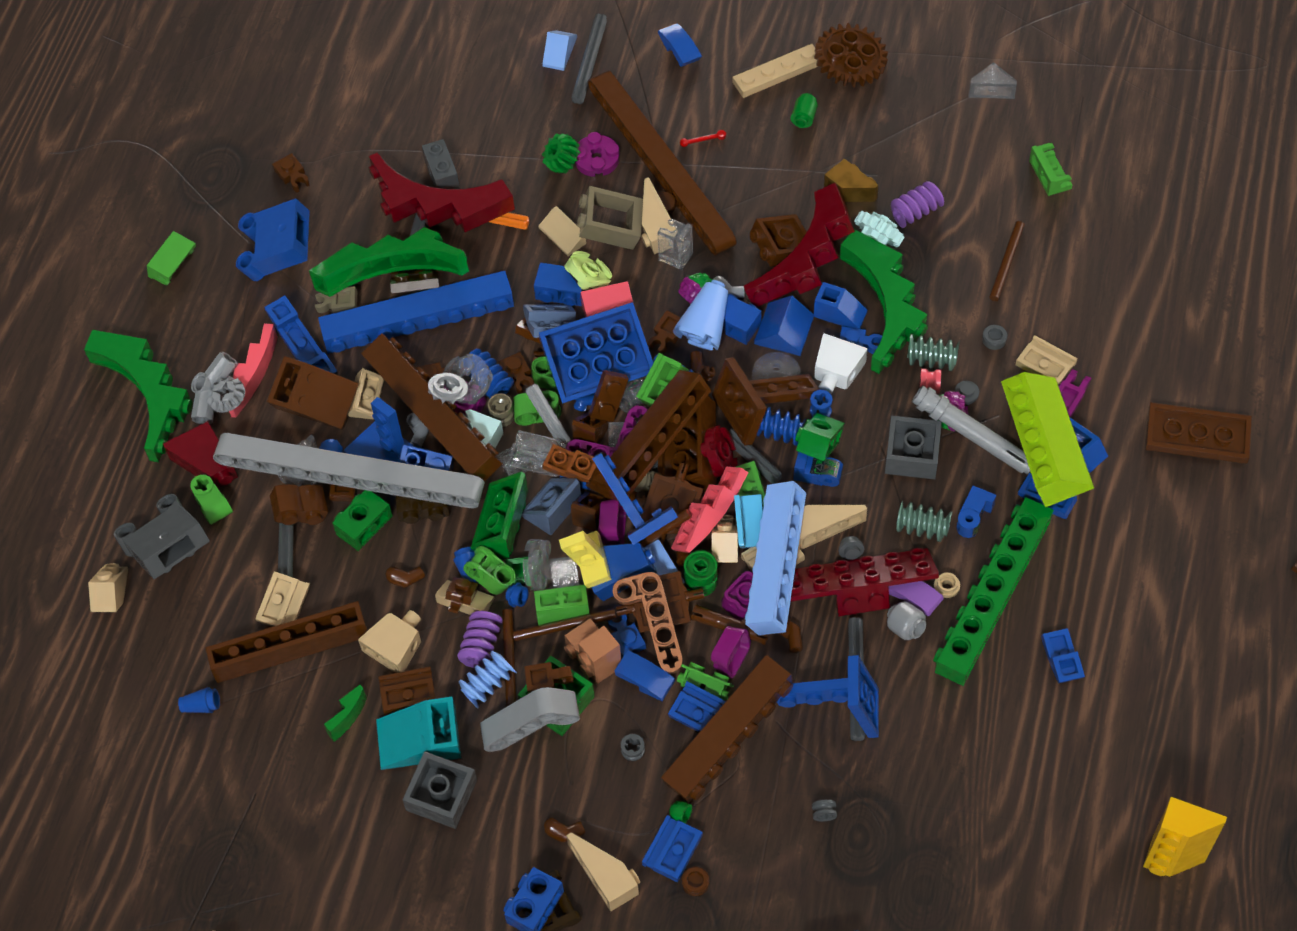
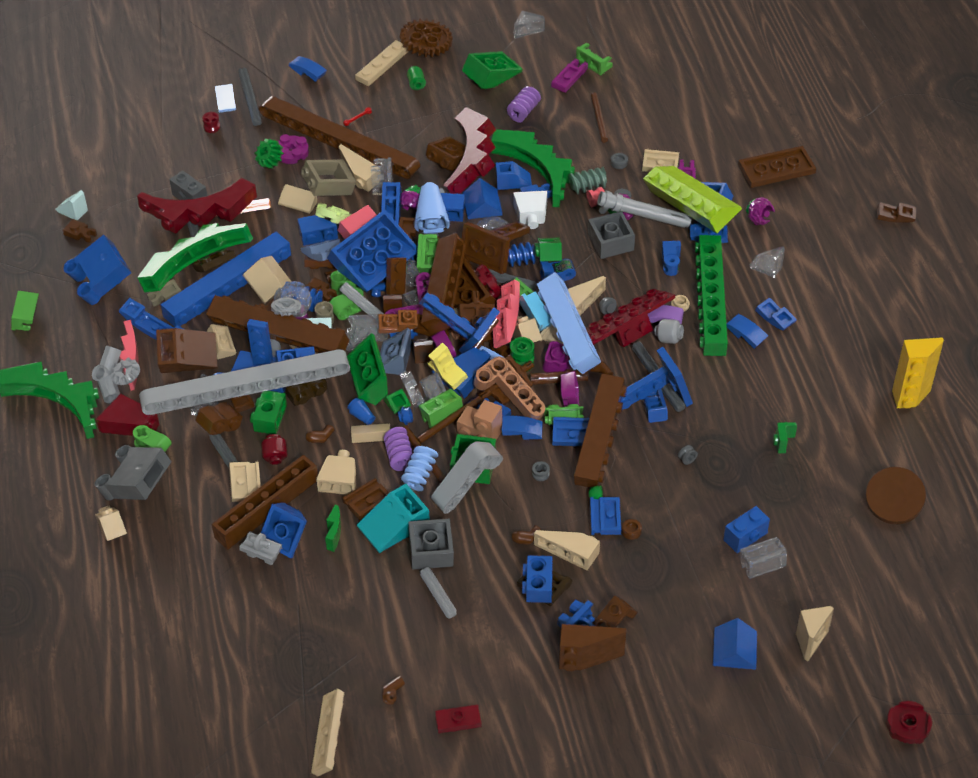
camera: 30 degrees left, 10 degrees down
(201, 701) = (223, 564): blue cone -> none
(249, 701) = (261, 547): none -> light grey hips
(288, 685) = (285, 527): none -> blue slope
(301, 137) = (73, 206): none -> light aqua slope
(339, 573) = (274, 449): none -> dark red head
(417, 857) = (438, 592): none -> light grey axle
(460, 592) = (368, 425): reddish brown plate -> none
(462, 331) = (266, 278): none -> tan slope
(488, 570) = (382, 406): bright green piece -> none
(522, 79) = (211, 122): none -> dark red wheel
(544, 676) = (462, 442): reddish brown plate -> none
(663, 291) = (391, 199): none -> blue slope
(818, 404) = (533, 235): blue bush -> none
(823, 731) = (656, 407): none -> blue slope
(852, 183) = (478, 104): pearl gold slope -> none
(879, 228) = (511, 121): light aqua gear -> none
(907, 133) = (490, 68): none -> green slope
(922, 521) = (644, 272): sand green piece -> none
(964, 832) = (783, 432): none -> green bracket
(1003, 182) = (569, 75): none -> magenta hinge
(1009, 662) = (747, 329): none -> blue slope
(1099, 574) = (769, 262): none -> clear slope
(1129, 492) = (758, 210): none -> magenta piece

